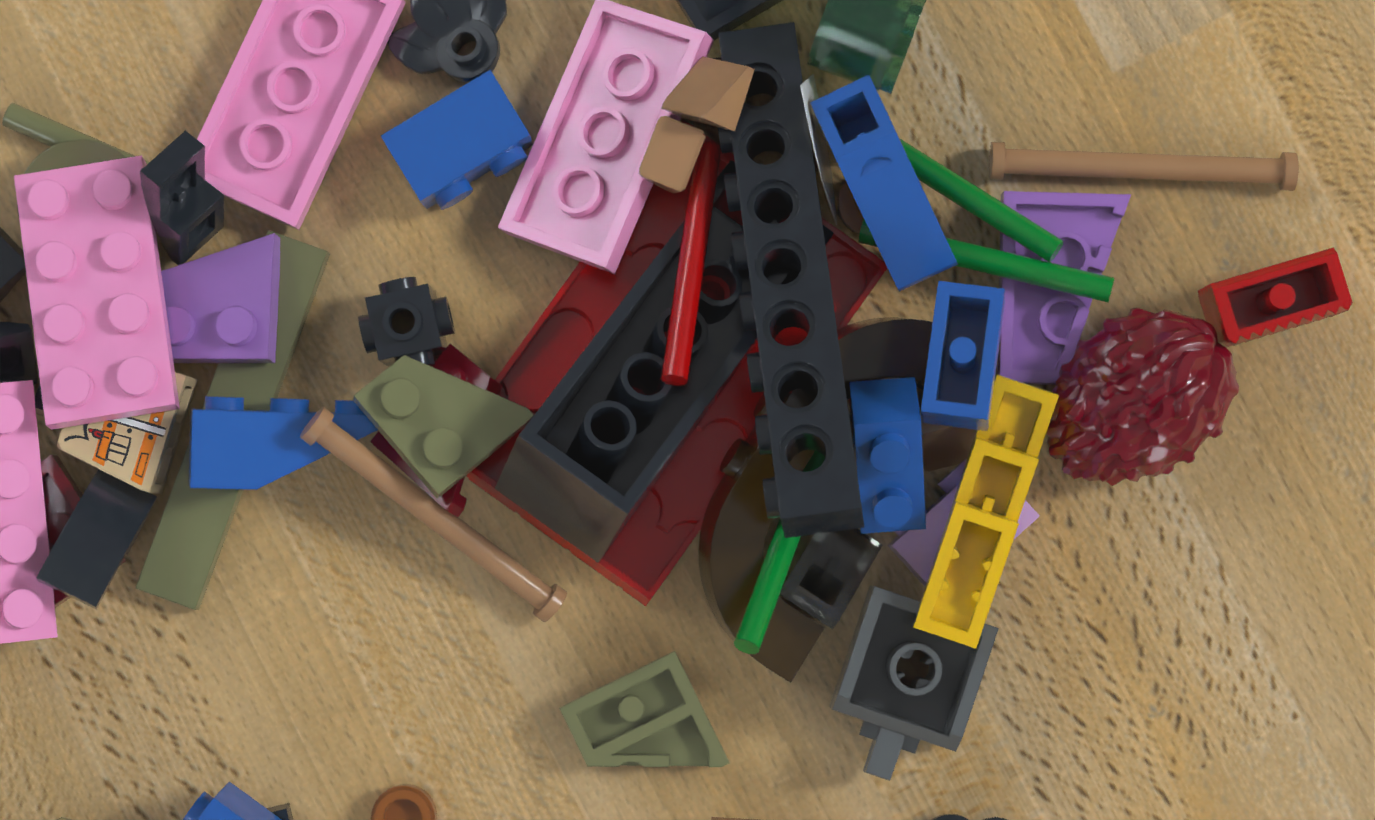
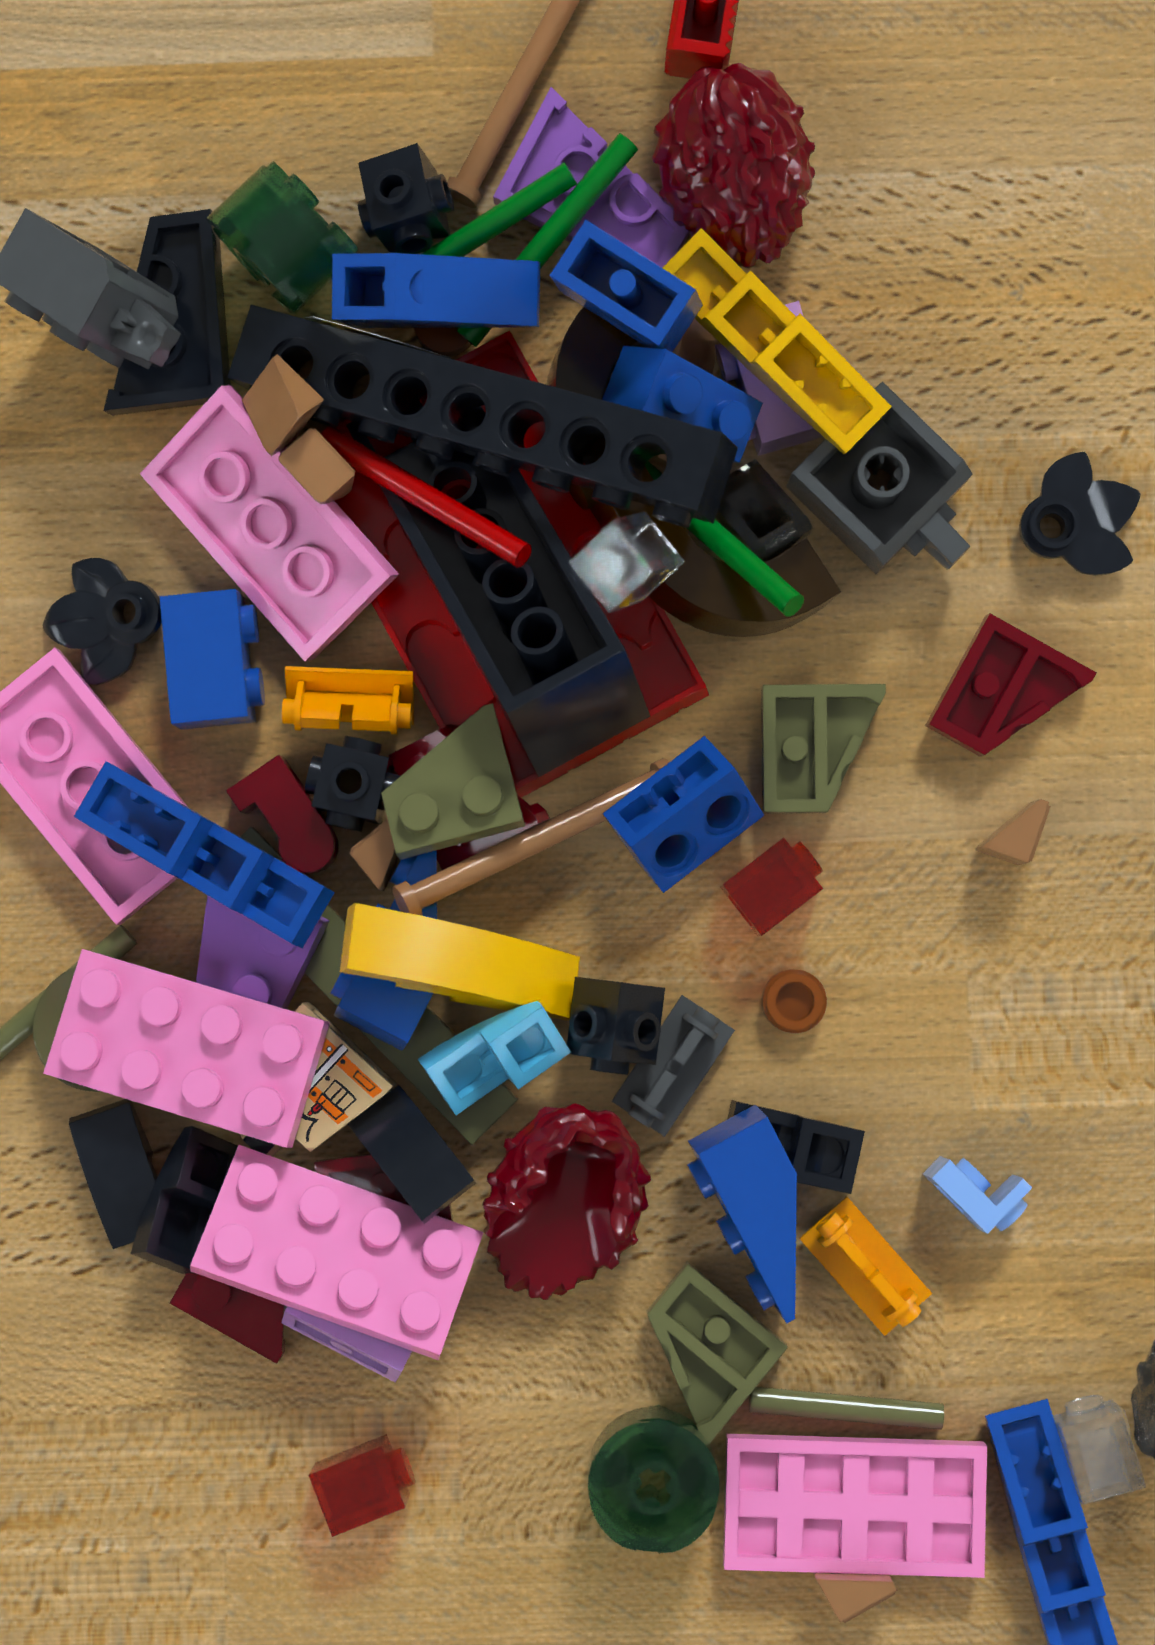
camera: 65 degrees left, 0 degrees up
(121, 695) = (564, 1200): none -> dark red hair
(180, 200) = (141, 931): black slope -> none
(213, 559) = (501, 1048): none -> medium azure slope
(276, 223) = (204, 854): none -> blue slope
(286, 499) = (457, 961): none -> yellow slope
(292, 735) = (685, 1053): none -> dark grey hinge
(303, 664) = (615, 1023): none -> black brick
(349, 376) = (376, 855): none -> medium nougat slope
(364, 264) = (302, 832): none -> dark red leg
(492, 303) = (361, 696): none -> light orange hinge
(496, 748) = (774, 885): none -> clear red brick
(520, 636) = (684, 813): none -> blue brick
(714, 475) = (626, 561): none -> clear brick
(958, 114) = (404, 201): none -> black brick

